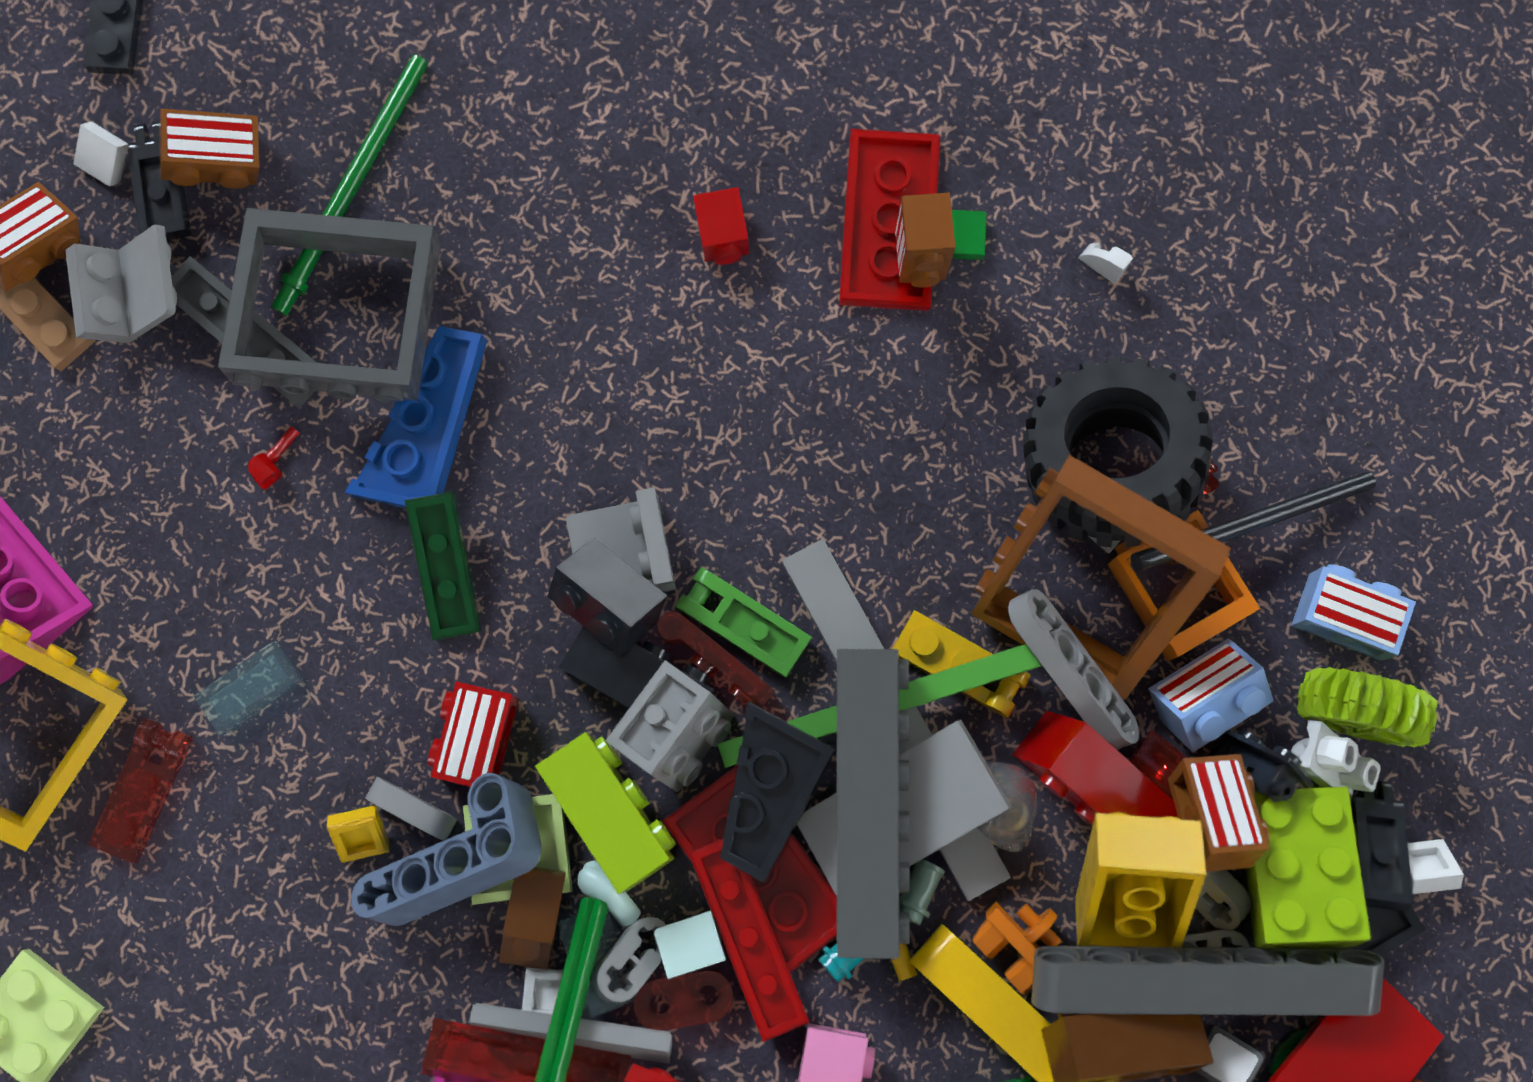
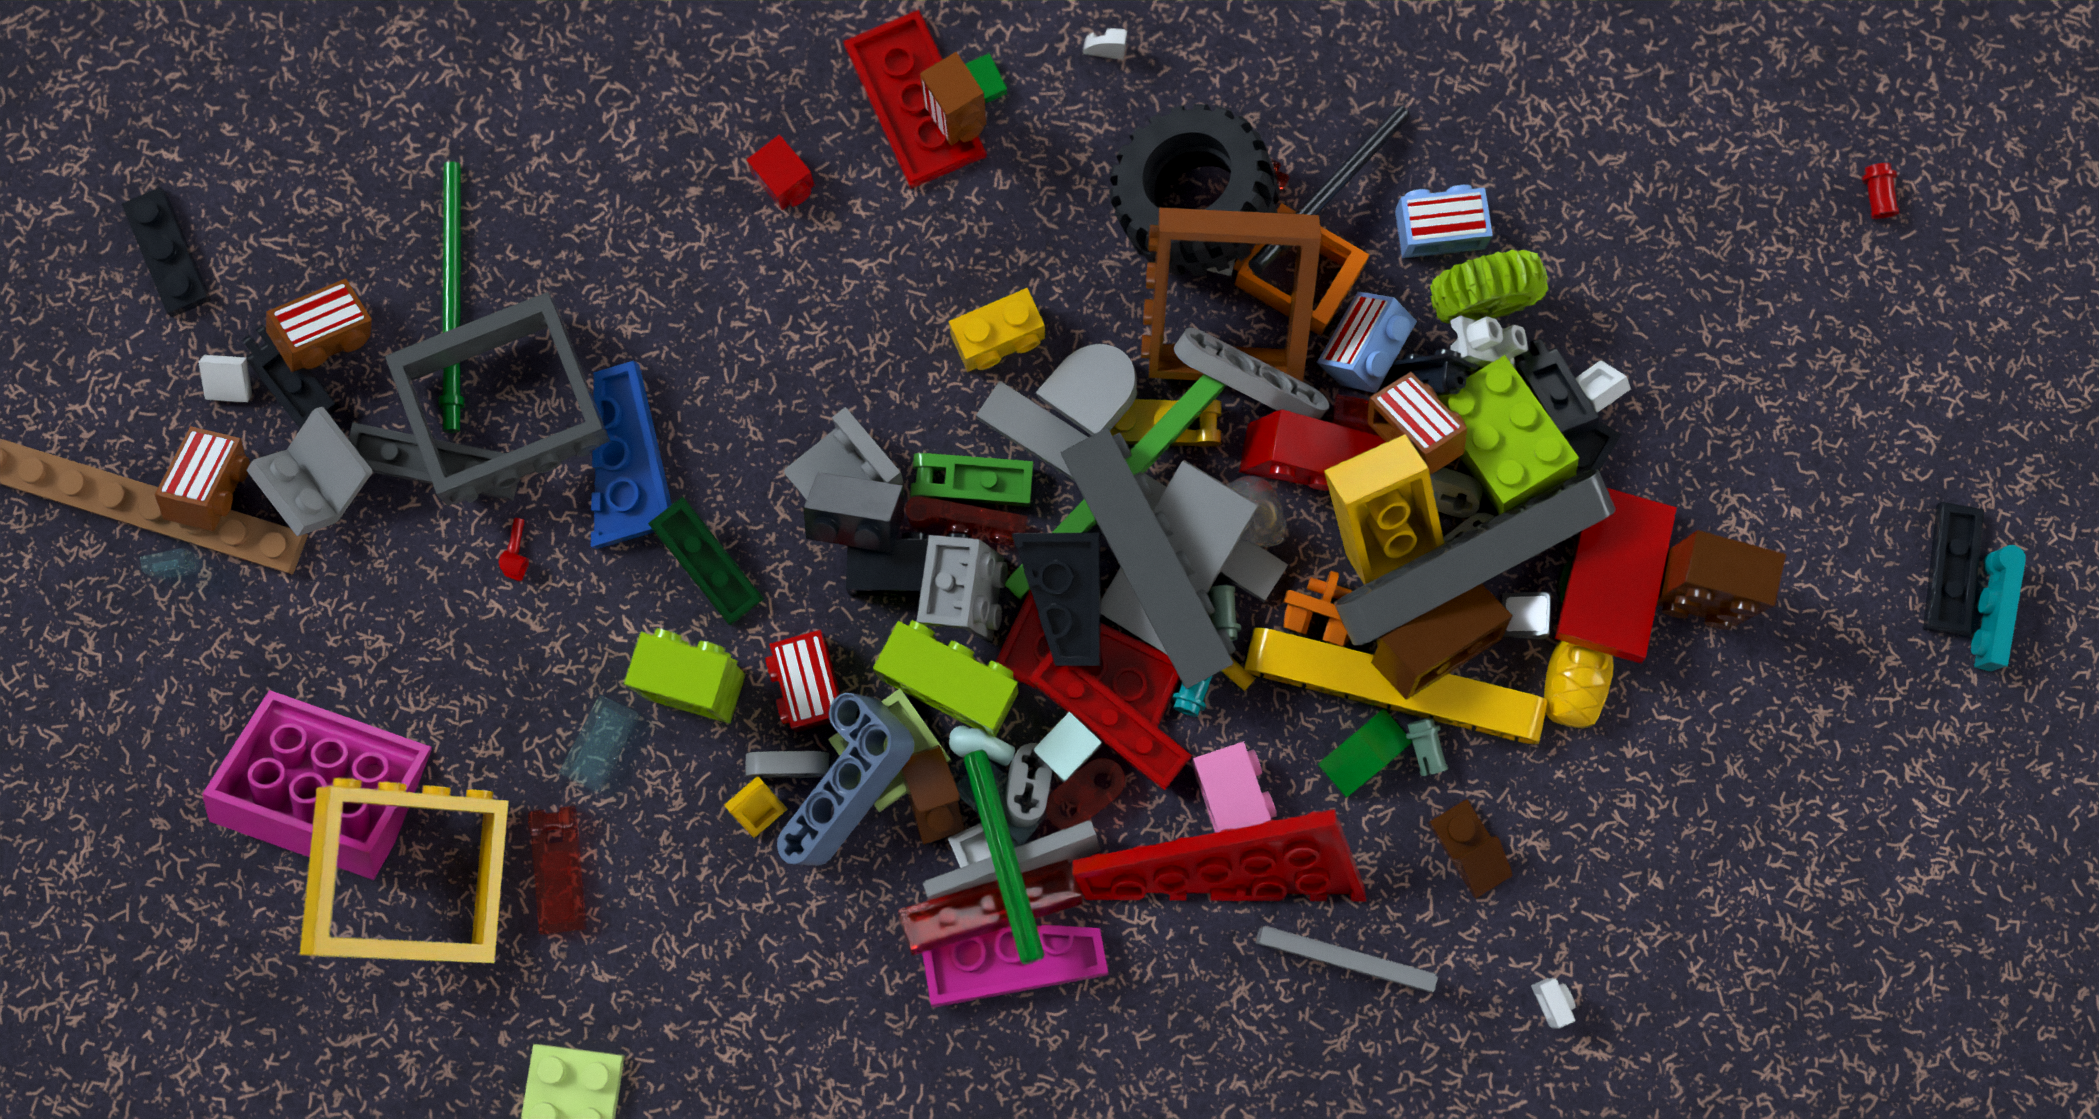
camera: 30 degrees left, 0 degrees up
(352, 673) = (685, 676): none -> lime brick
(847, 488) = (997, 330): none -> yellow brick
(910, 595) = (1092, 387): none -> light grey tile

